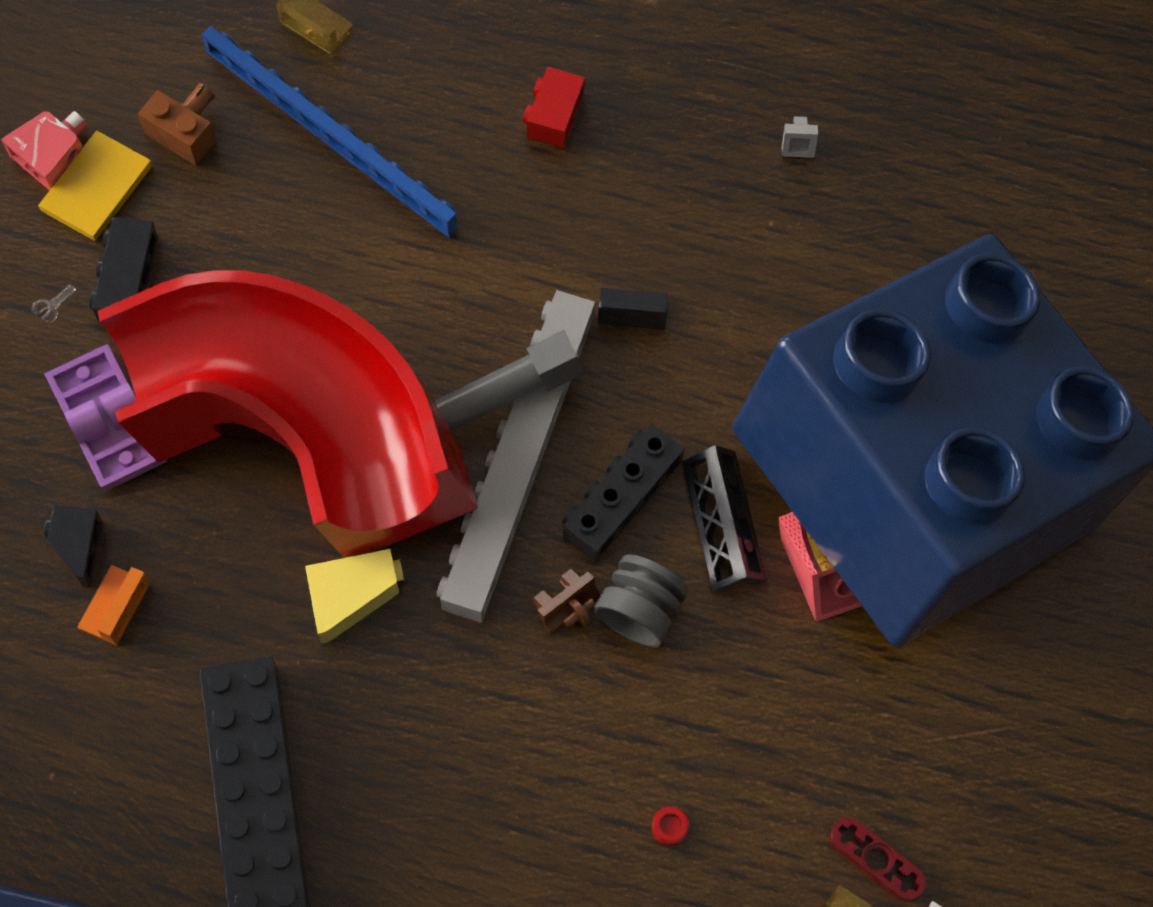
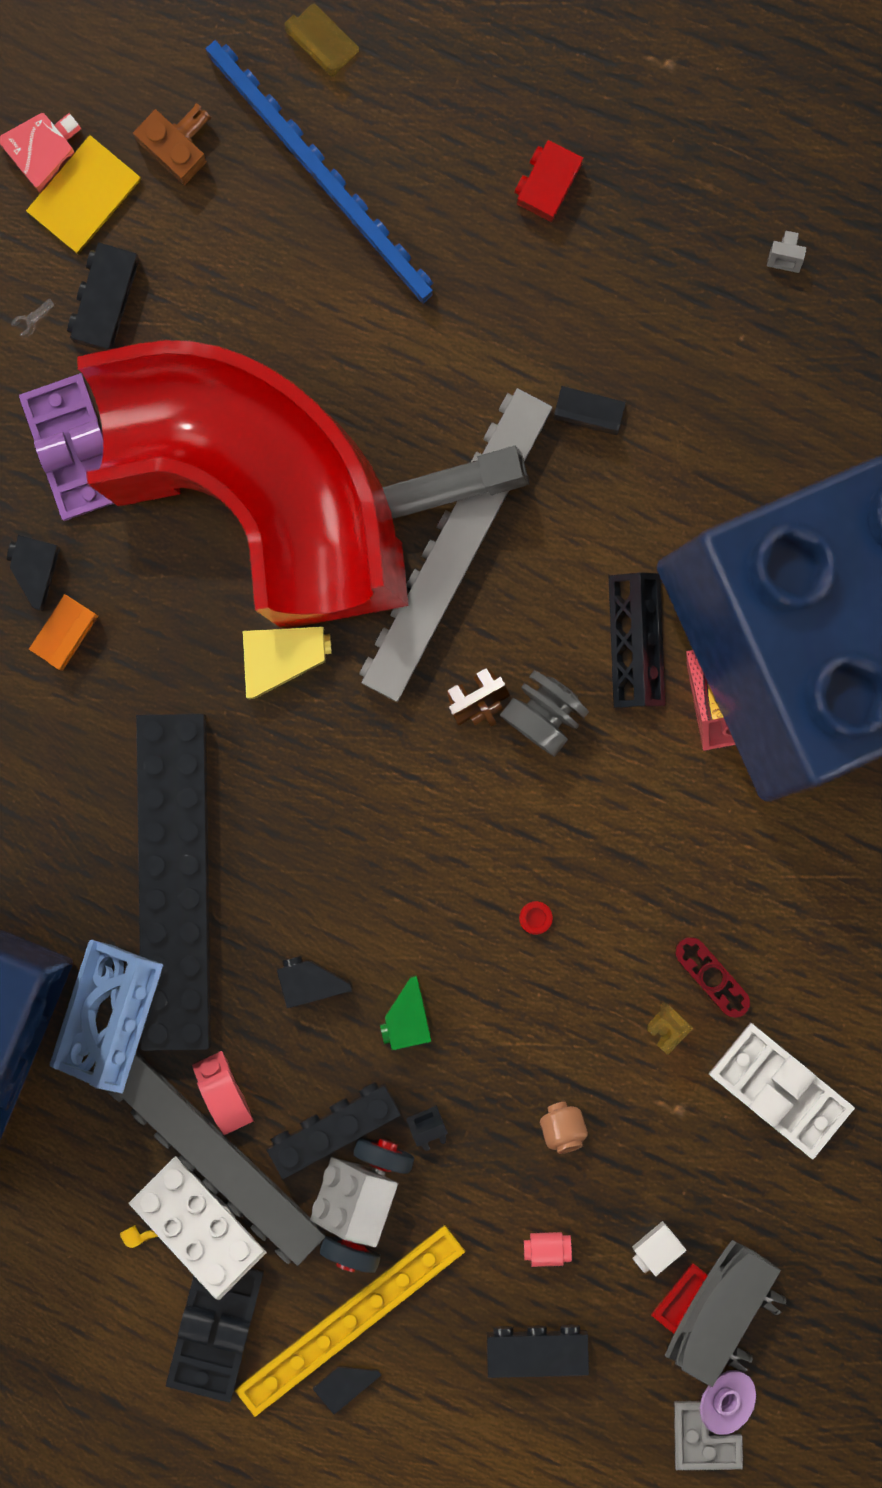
camera: 10 degrees right, 20 degrees up
(622, 493) = (547, 600): black brick -> none

